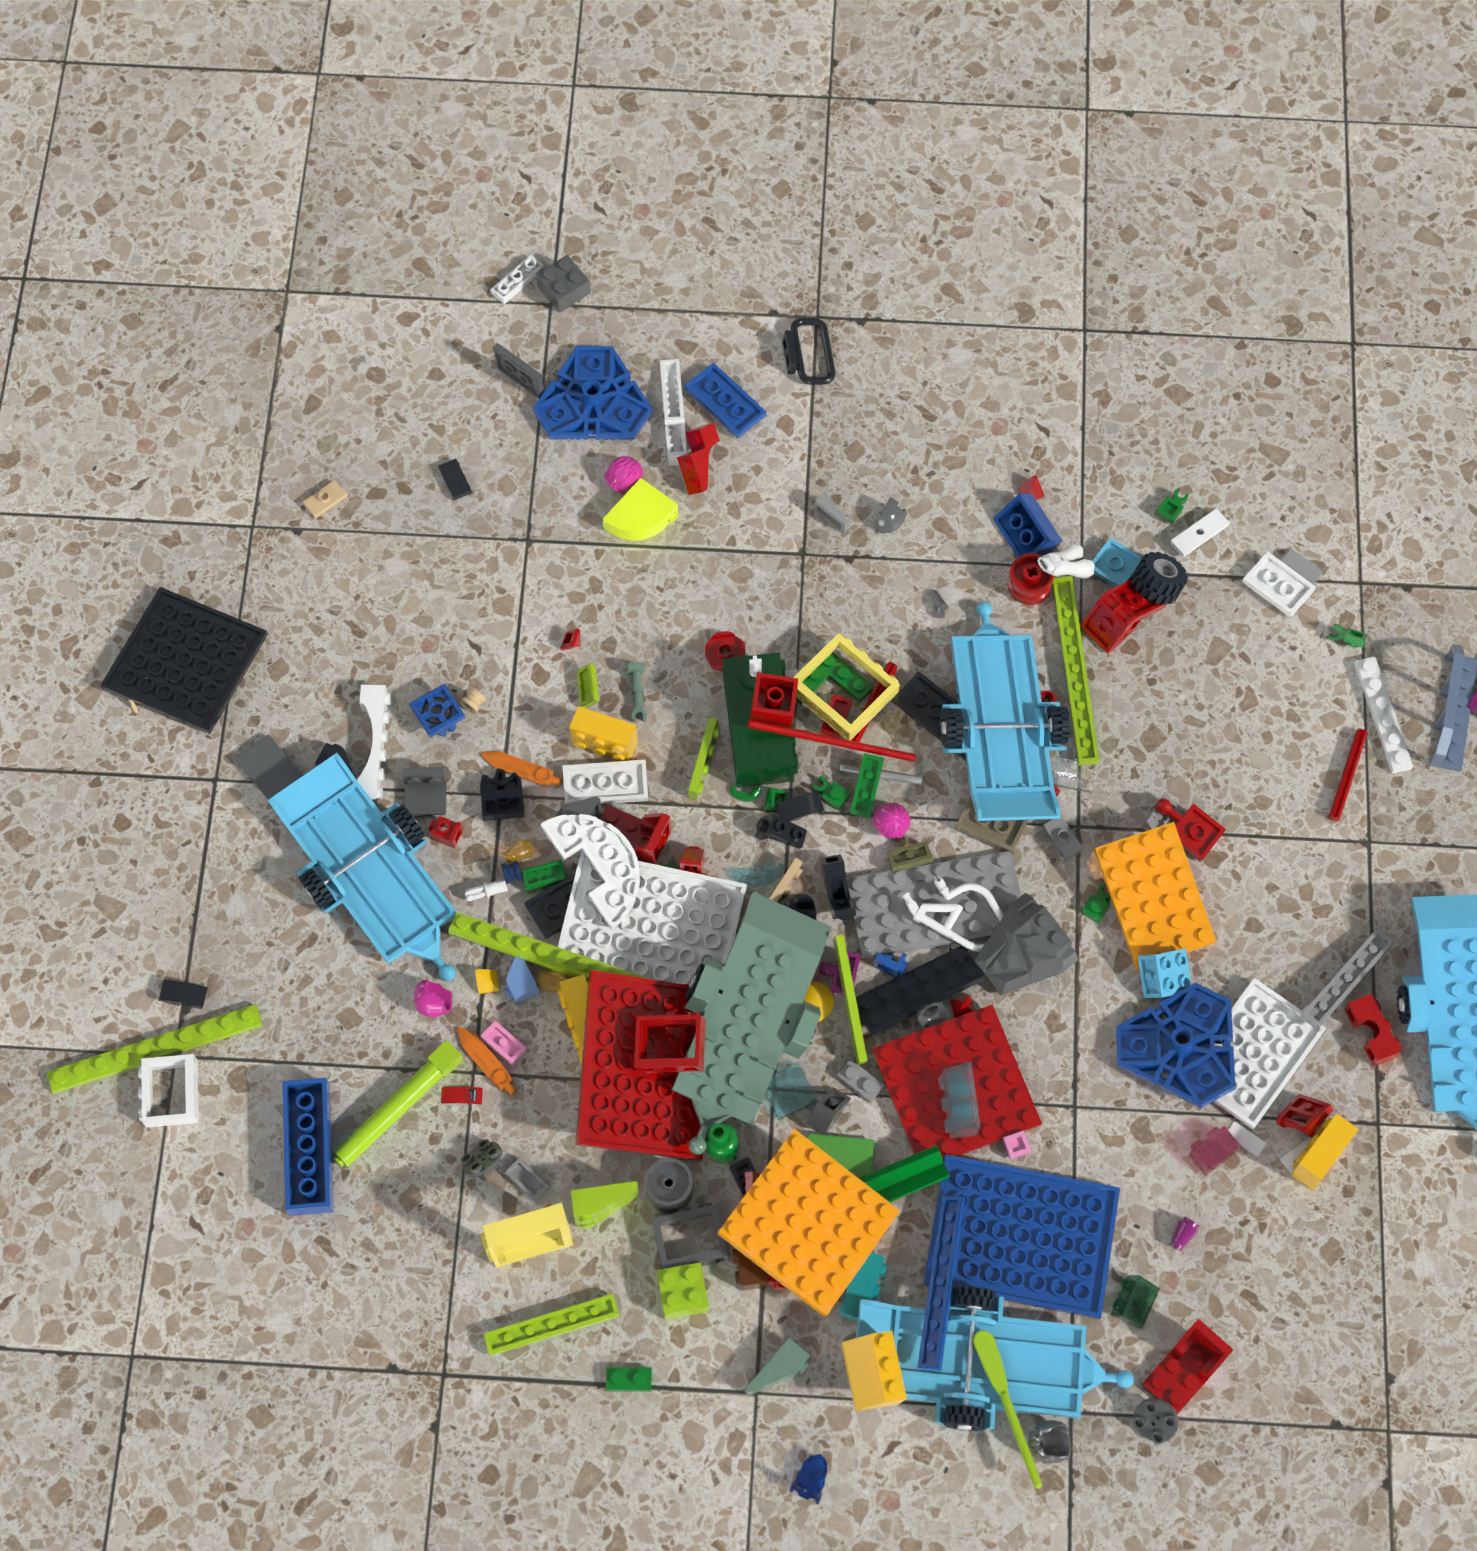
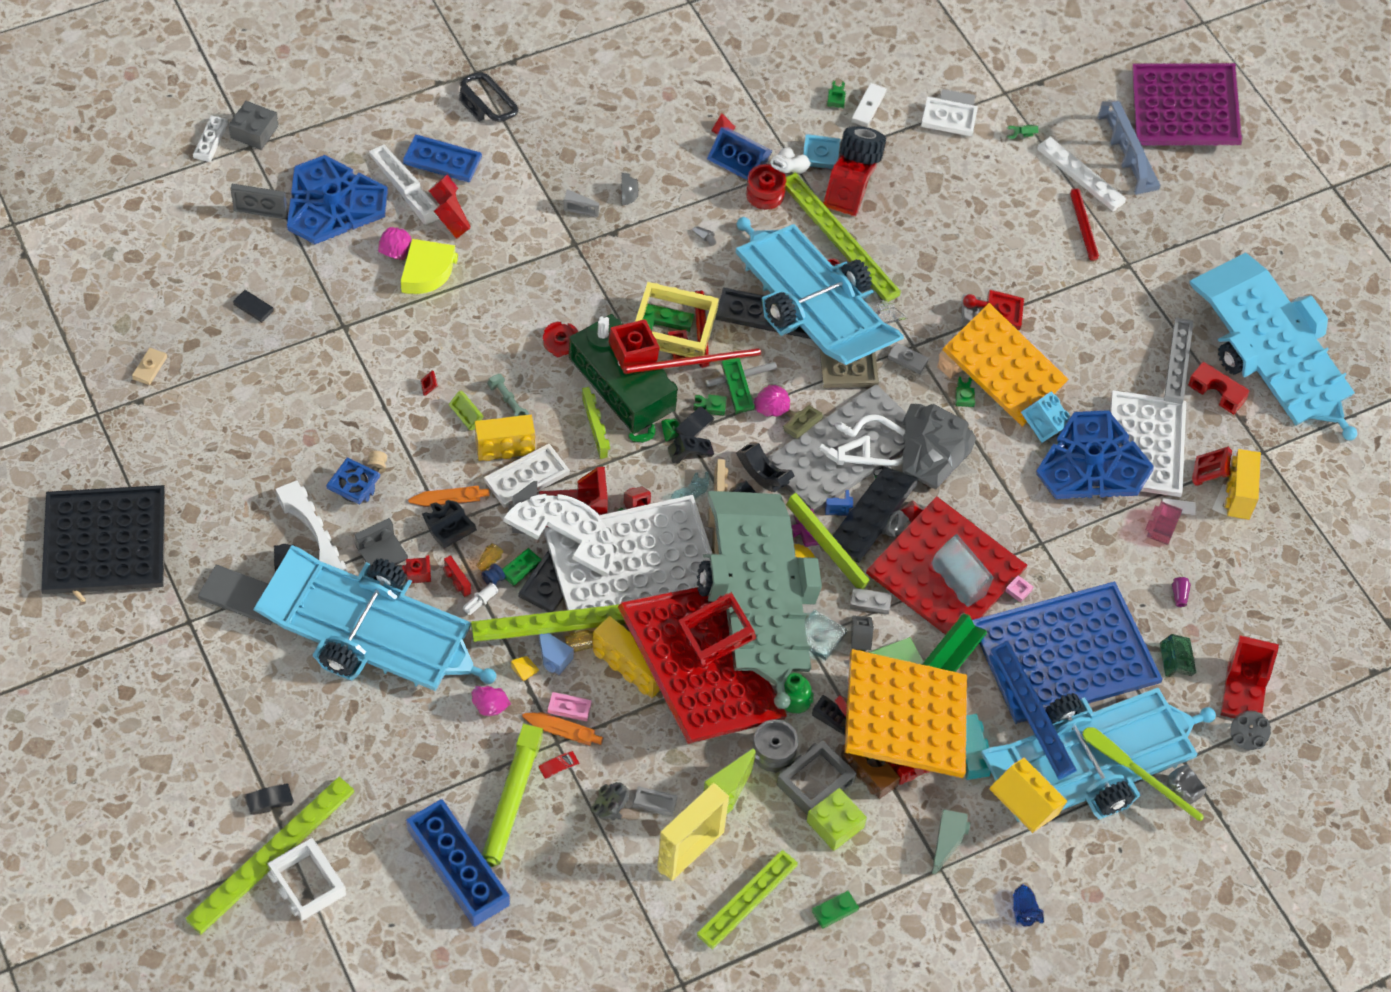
camera: 35 degrees left, 10 degrees down
(477, 863) = (460, 581): none -> red plate

